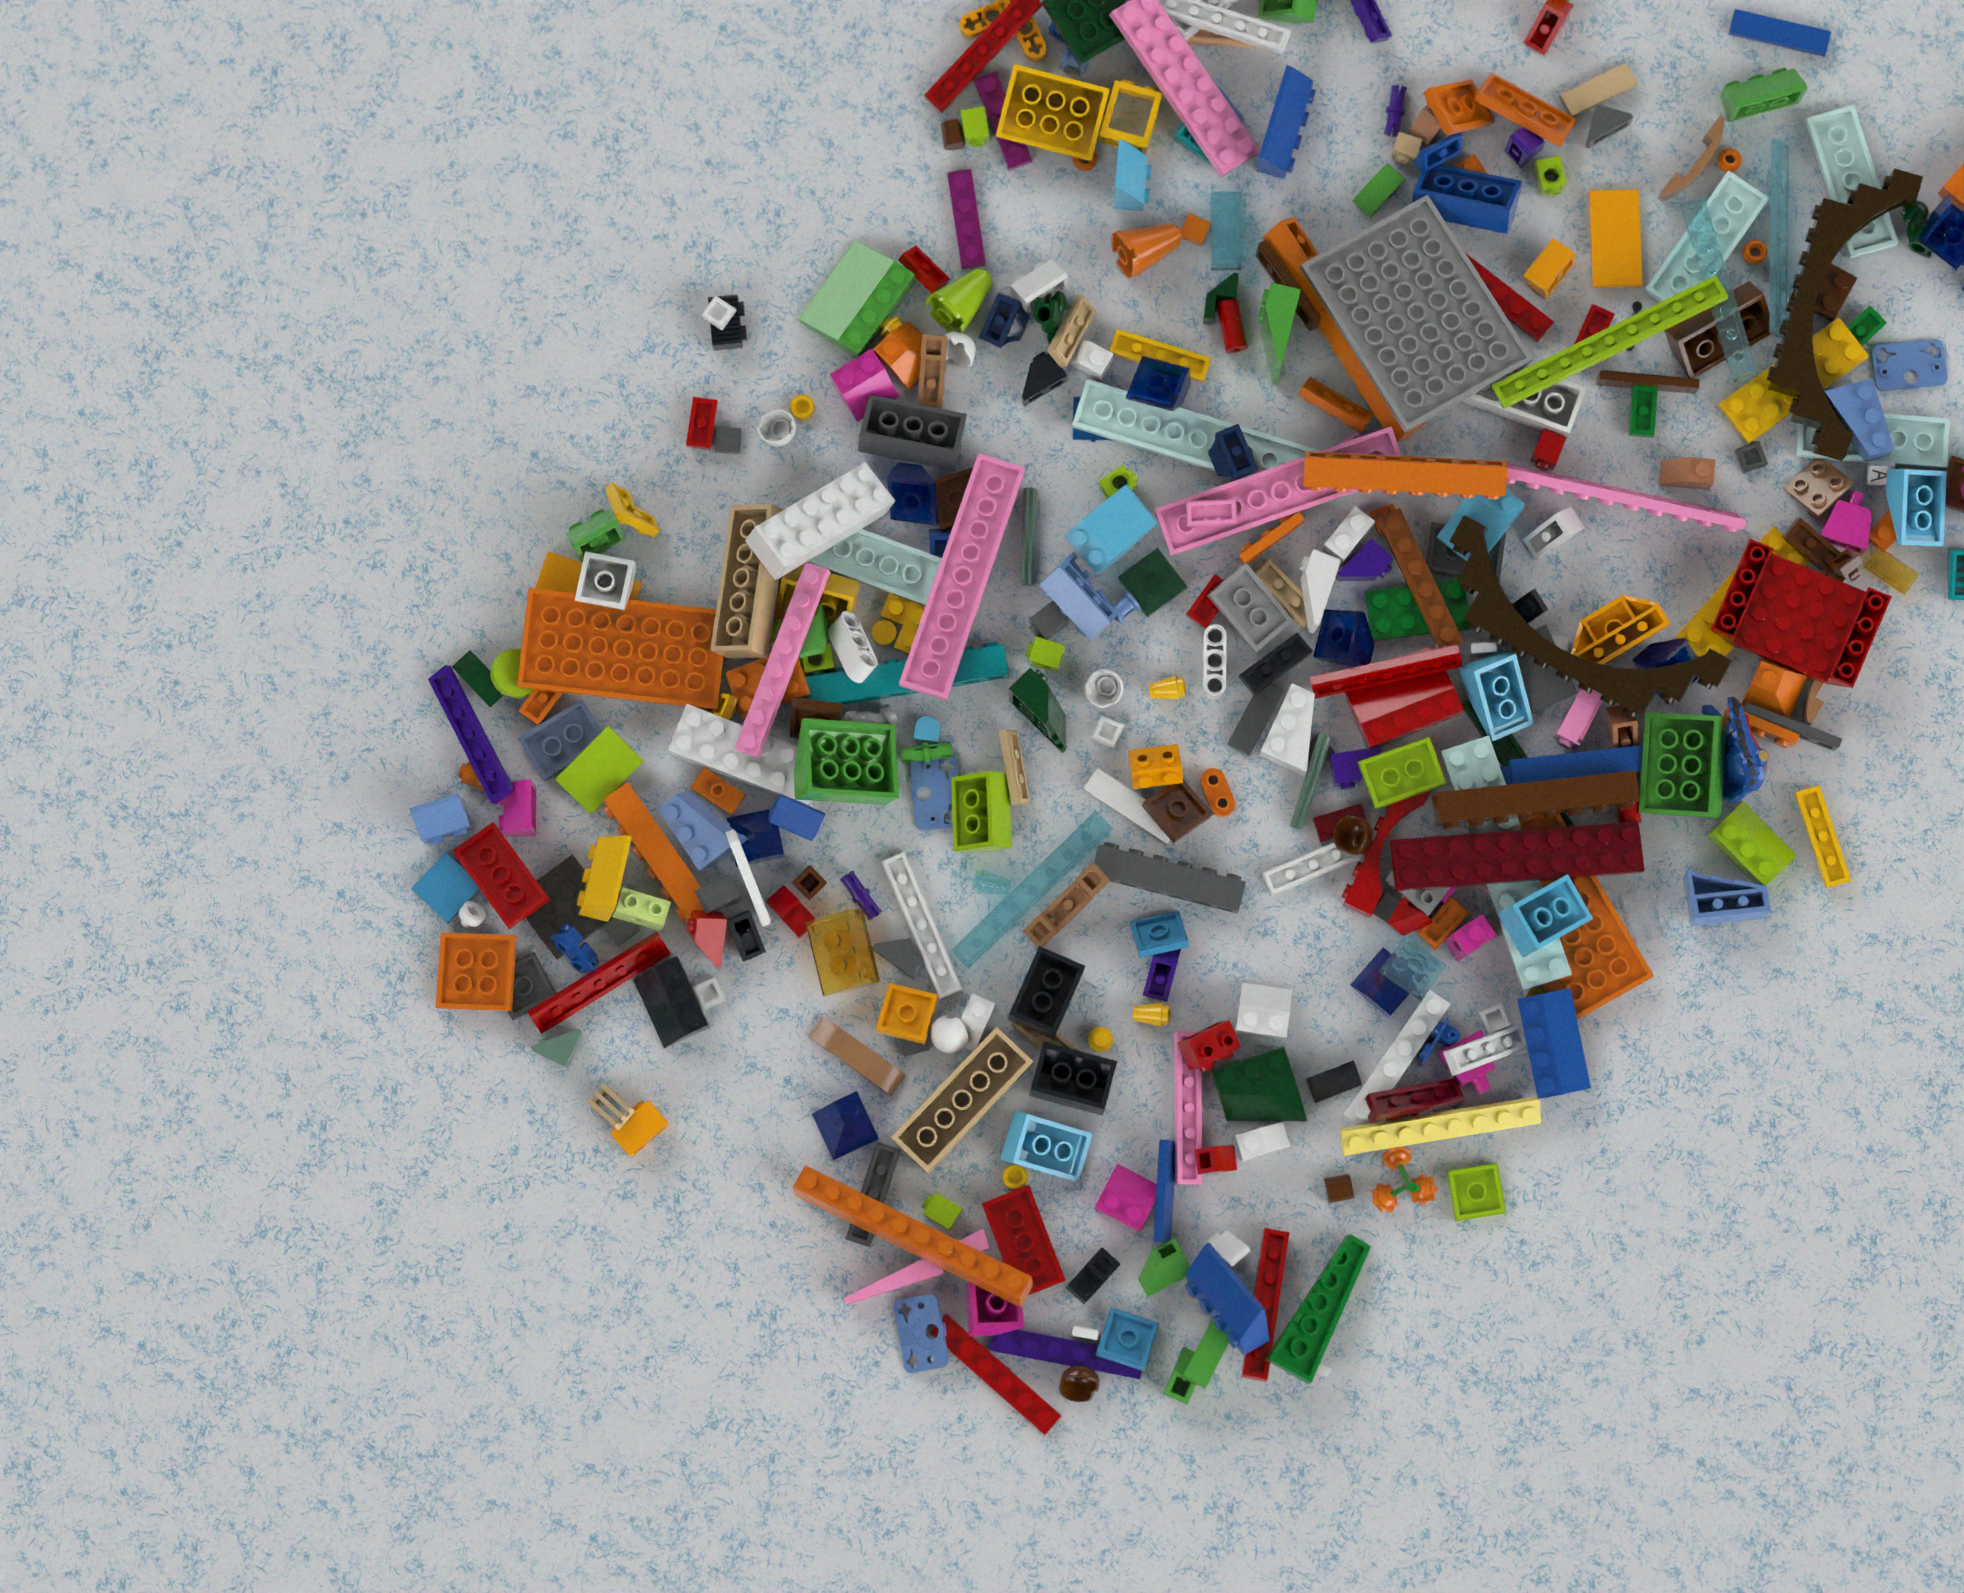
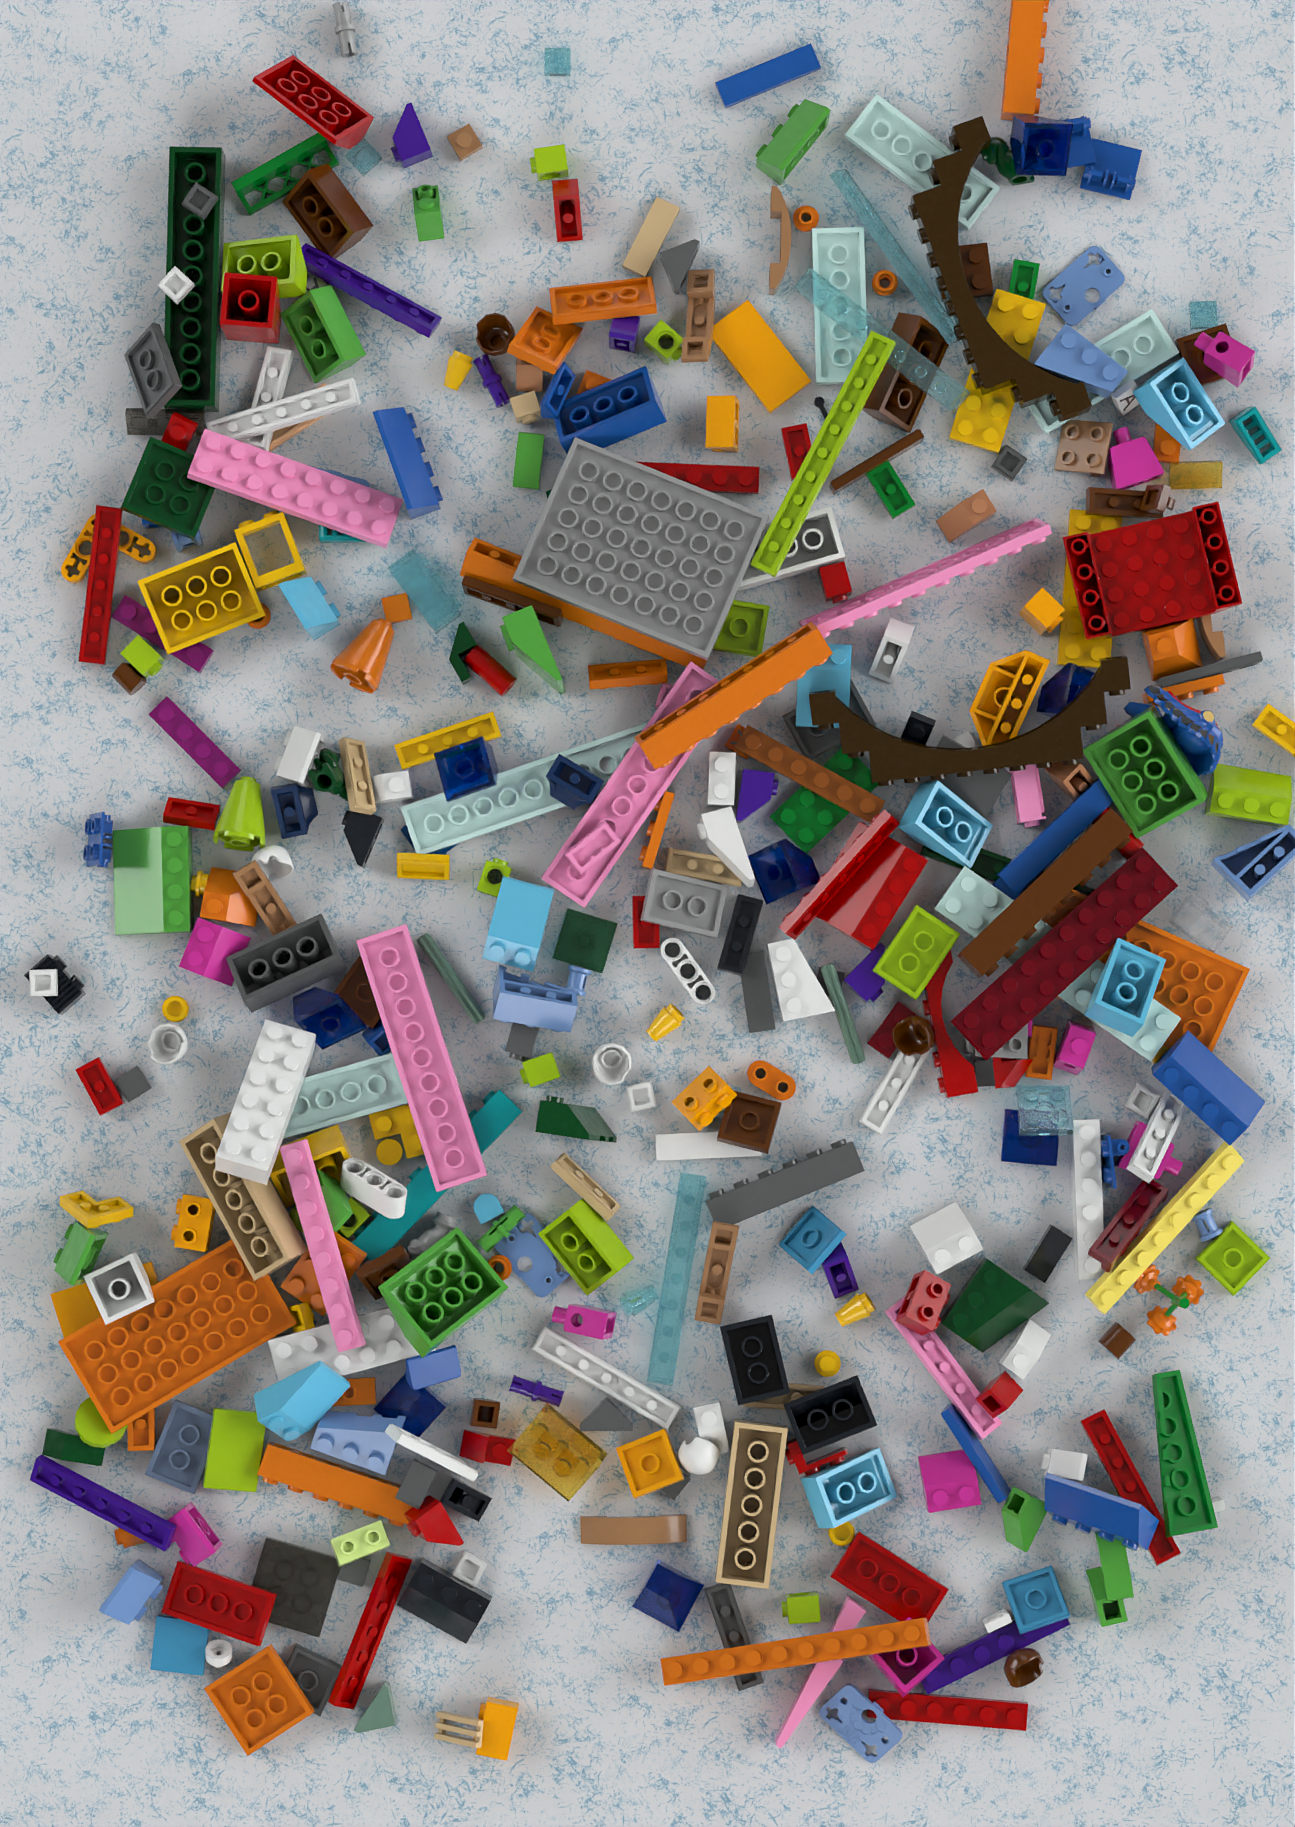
camera: 40 degrees left, 5 degrees up
(583, 957) = (319, 1618): blue hinge -> none
(603, 877) = (307, 1541): yellow slope -> none
(678, 765) = (299, 1400): none -> medium azure slope
(696, 577) = (194, 1223): none -> light orange brick
(843, 227) = (95, 828): none -> blue hinge
(904, 773) = (506, 1264): none -> orange plate
(945, 873) = (596, 1322): none -> dark pink torso
(1022, 1090) = (795, 1456): none -> red bracket
(1070, 436) = (423, 866): none -> yellow tile
(1093, 1275) = (967, 1566): black slope -> none
(1375, 83) = (457, 369): none -> yellow cone
(1422, 75) = (494, 334): none -> reddish brown hair
(1449, 433) = (743, 629): none -> lime tile
(1471, 1142) = (1213, 1228): none -> medium blue bush
(1483, 647) = (903, 793): white tile -> none
(1592, 175) = (700, 316): none -> medium nougat slope
(1692, 586) = (1042, 612): none -> light orange brick

